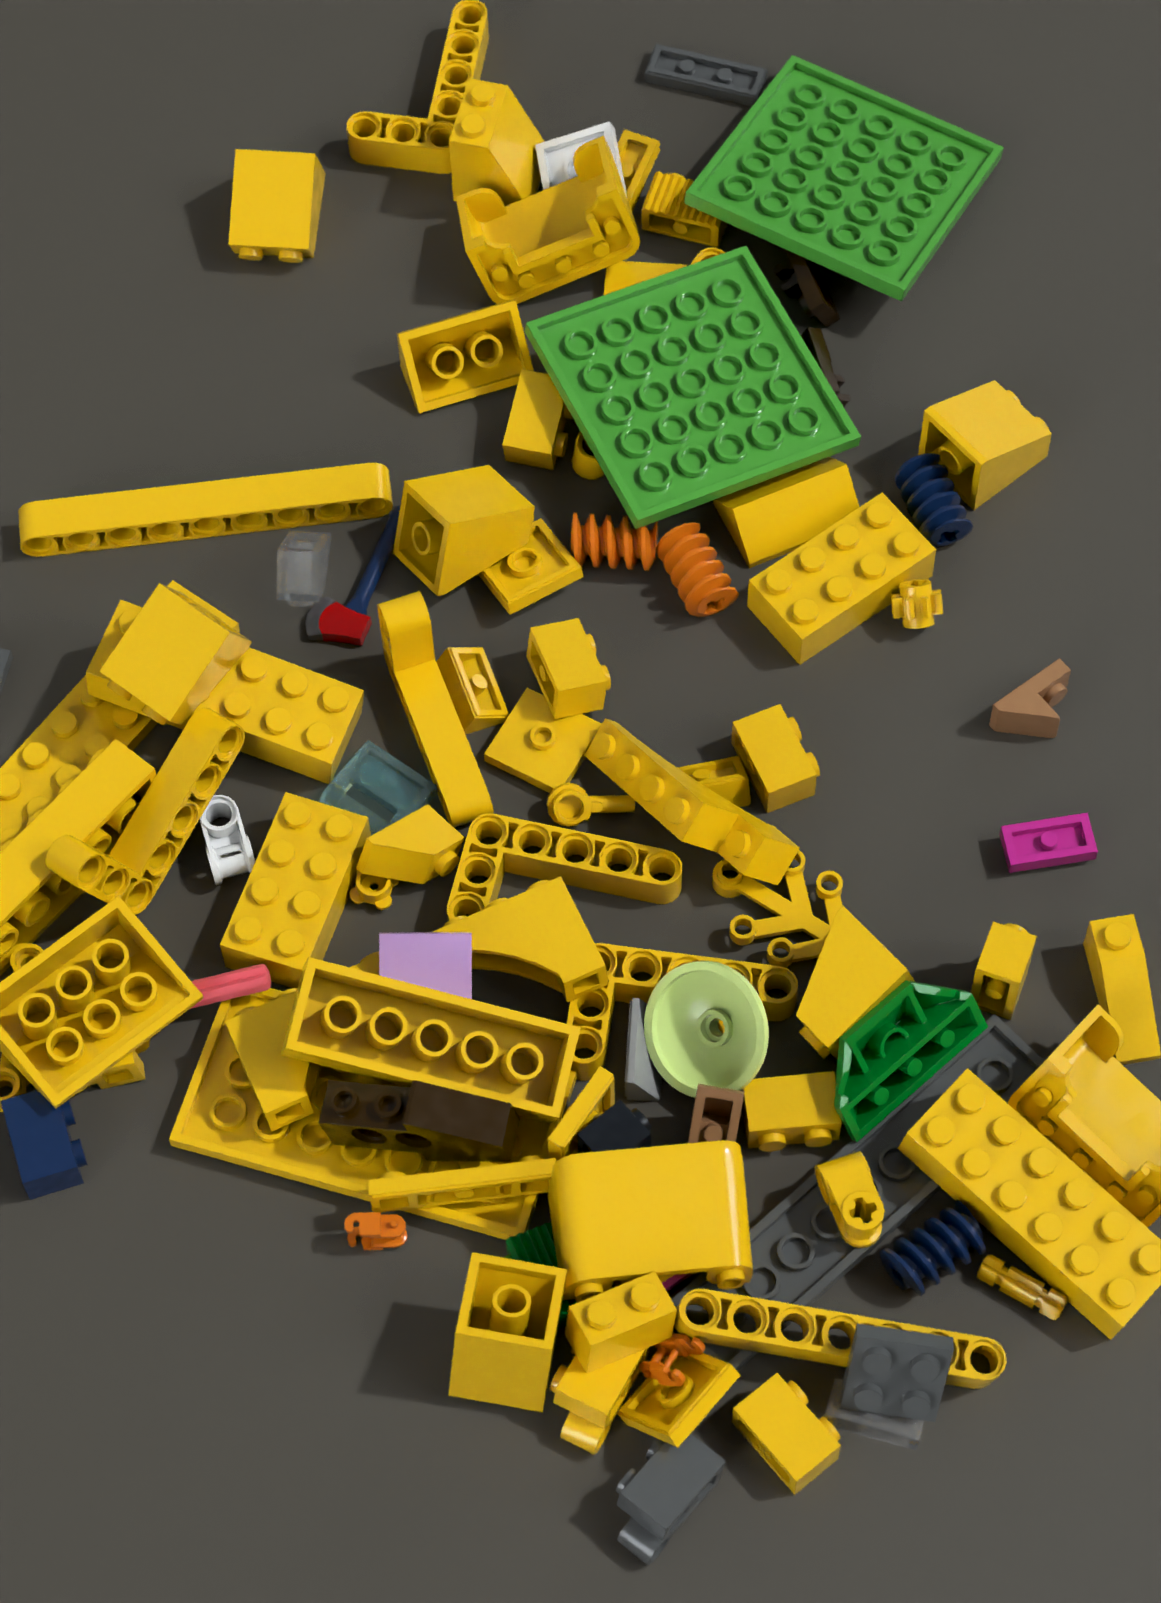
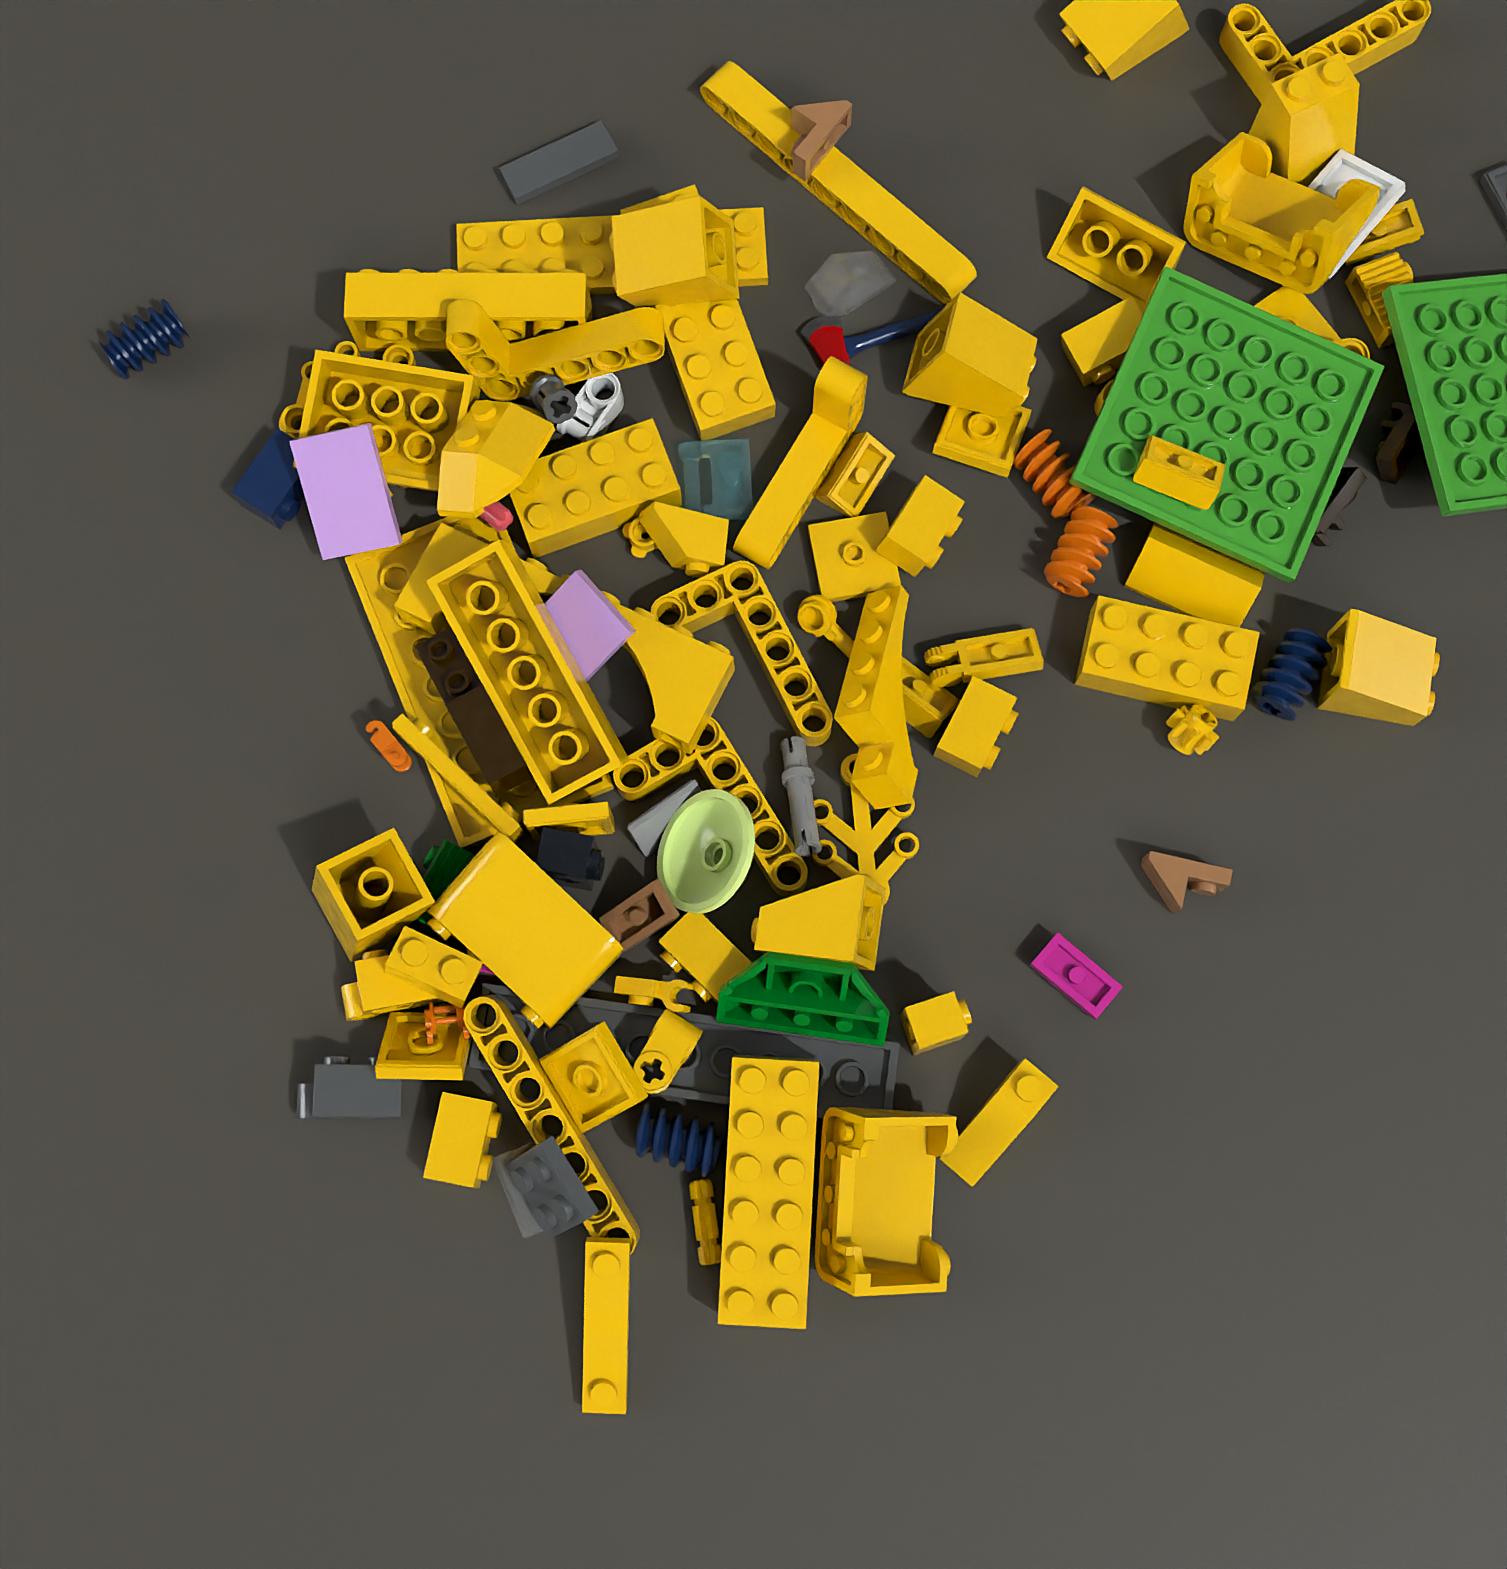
camera: 50 degrees right, 15 degrees up
(121, 1079) = (346, 491): none -> lavender tile
(156, 479) = (820, 130): none -> medium nougat slope
(193, 850) = (554, 393): none -> dark grey bush
(206, 936) = (489, 456): none -> yellow wedge
(701, 923) = (798, 781): none -> light grey pin
(704, 443) = (1179, 473): none -> yellow slope
(719, 705) = (985, 657): none -> yellow hinge
(783, 1174) = (644, 992): none -> yellow plate
(827, 1264) = (593, 1077): none -> yellow plate
(1051, 1427) = (606, 1325): none -> yellow plate

